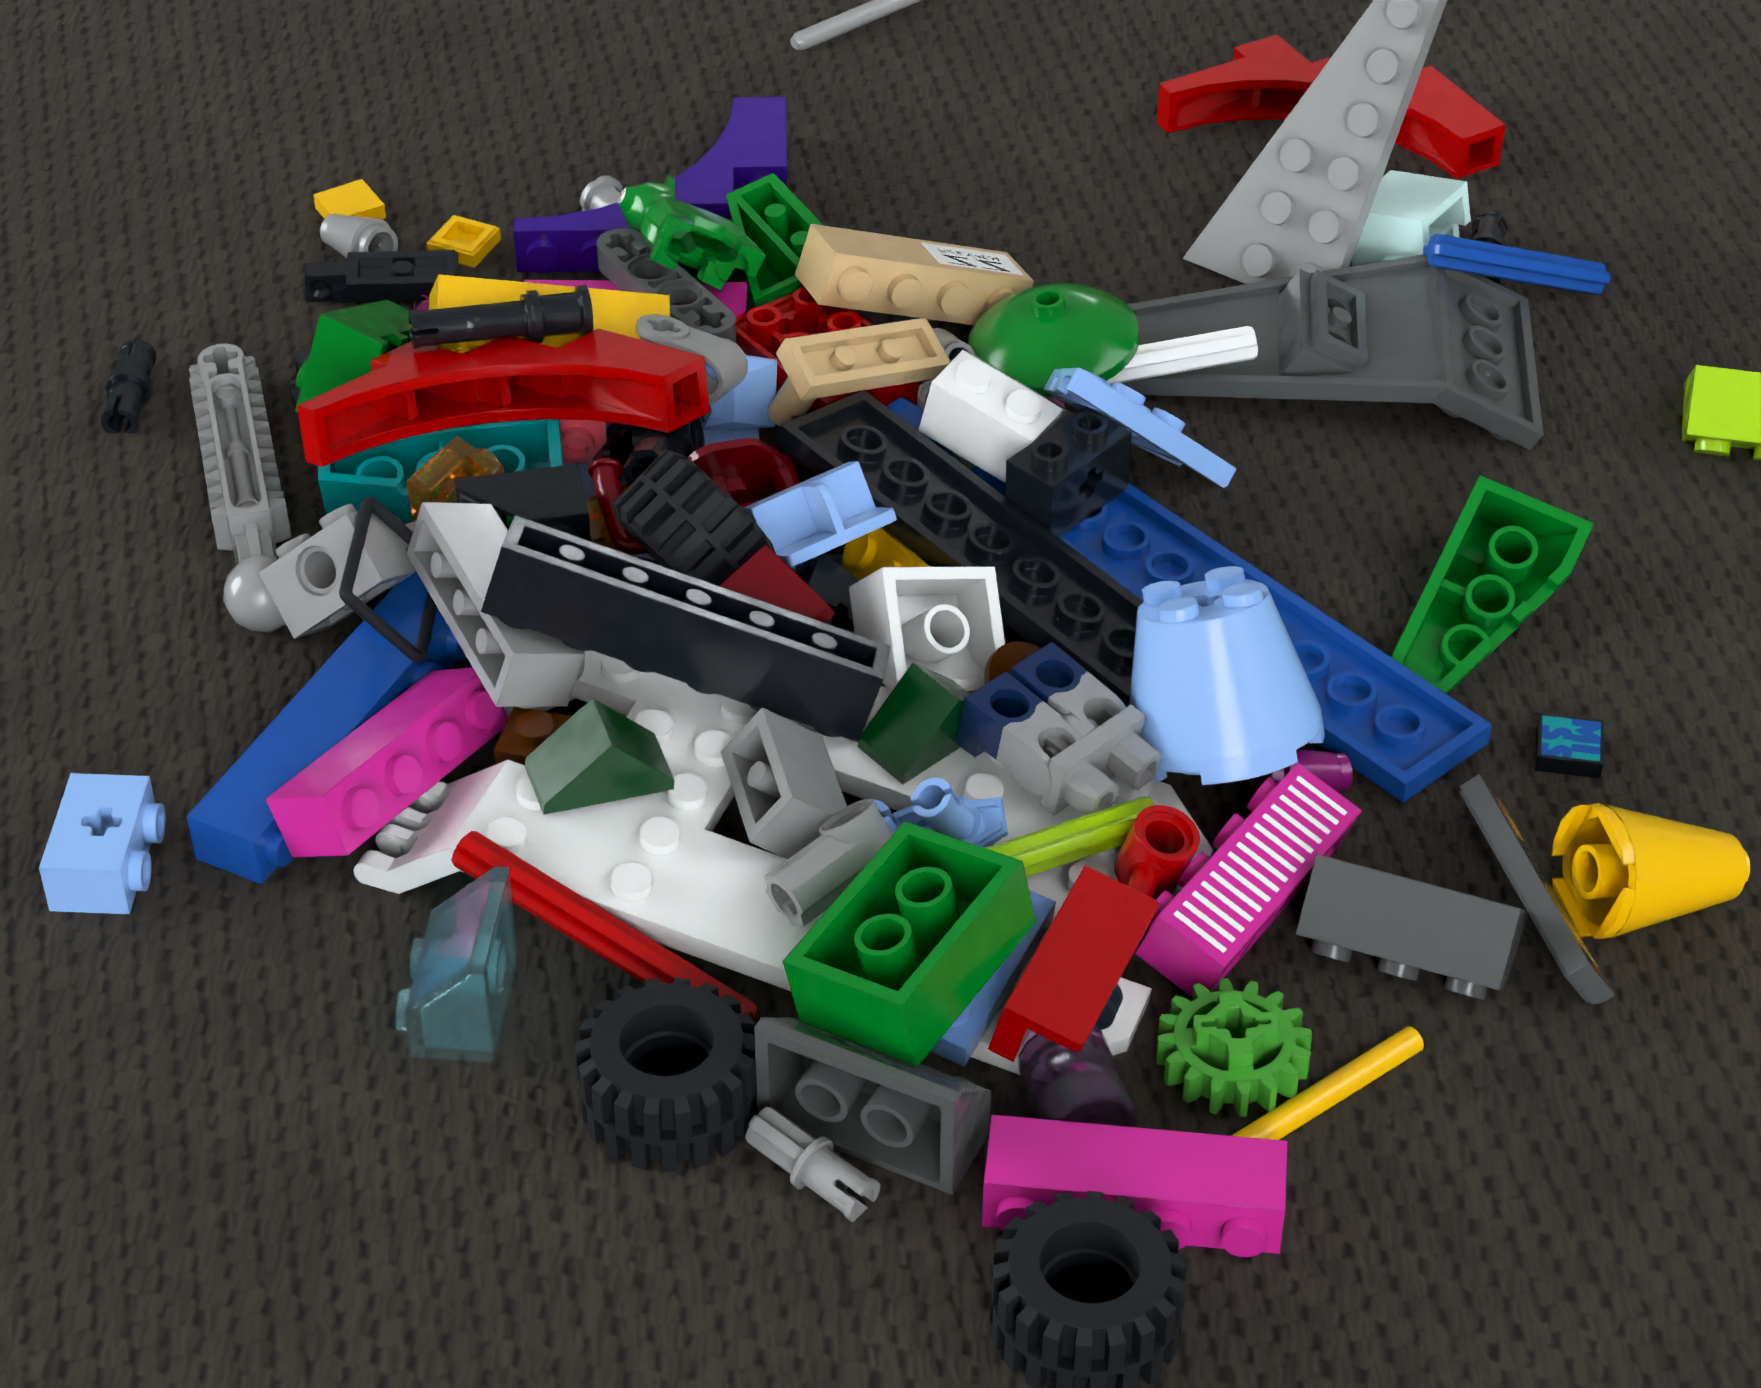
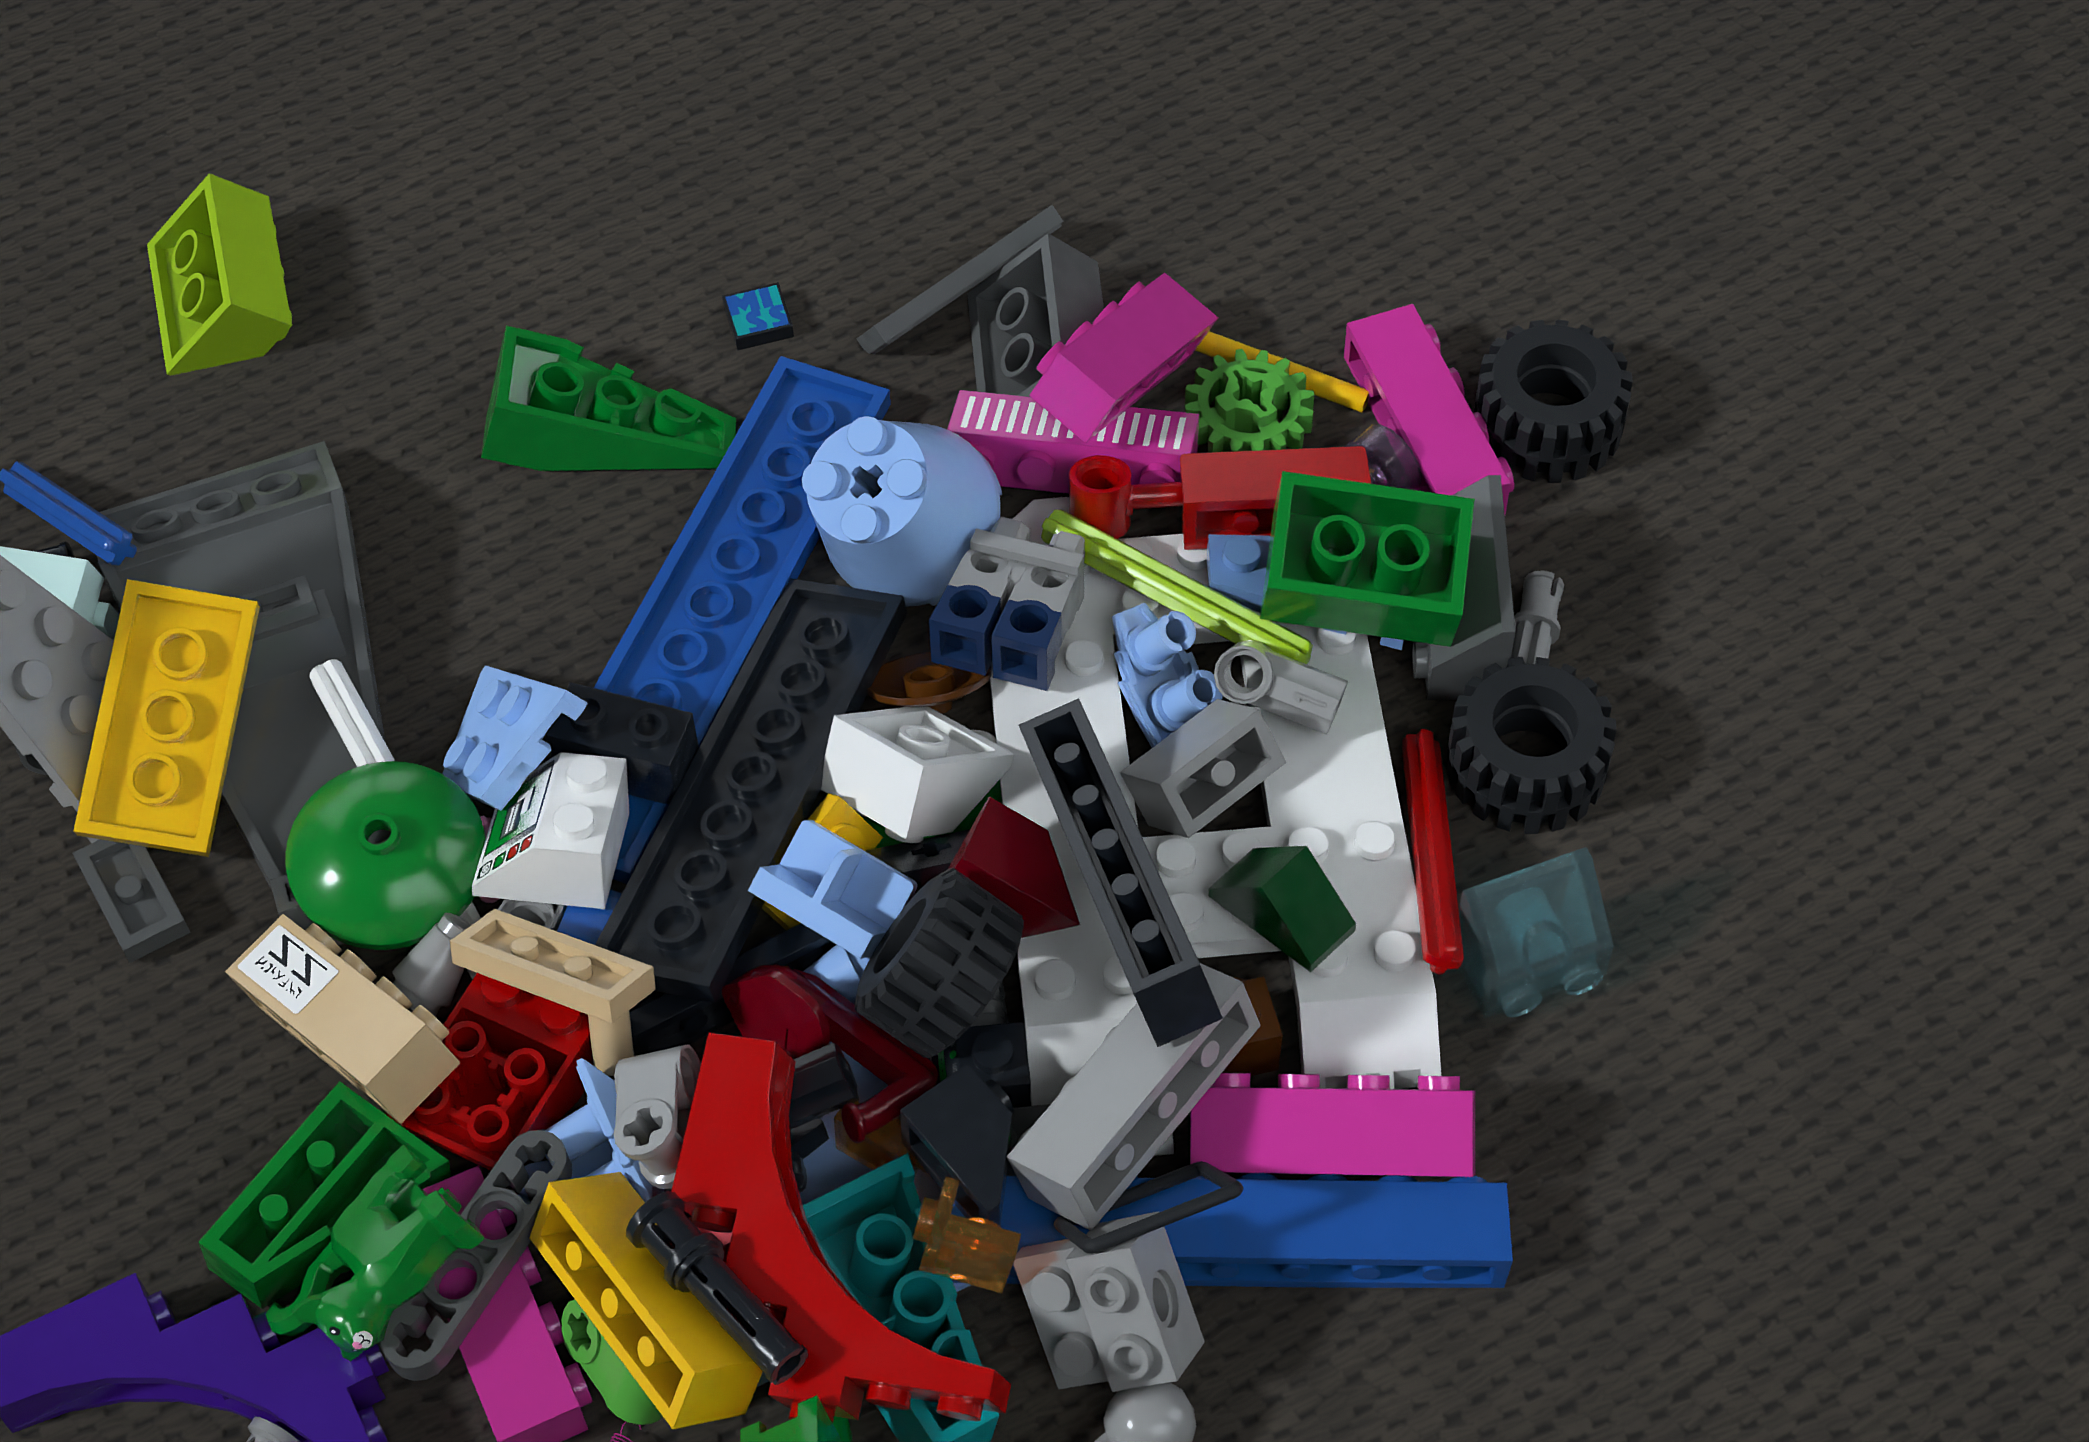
camera: 115 degrees left, 15 degrees up
(101, 844) = (1545, 1380): light blue brick -> none
(915, 724) = (1030, 692): dark green slope -> none
(1128, 249) = (131, 896): none -> dark grey plate
(1250, 248) = (167, 718): none -> yellow plate
(1318, 910) = (1121, 355): none -> dark pink brick
(1641, 869) = (919, 211): yellow cone -> none

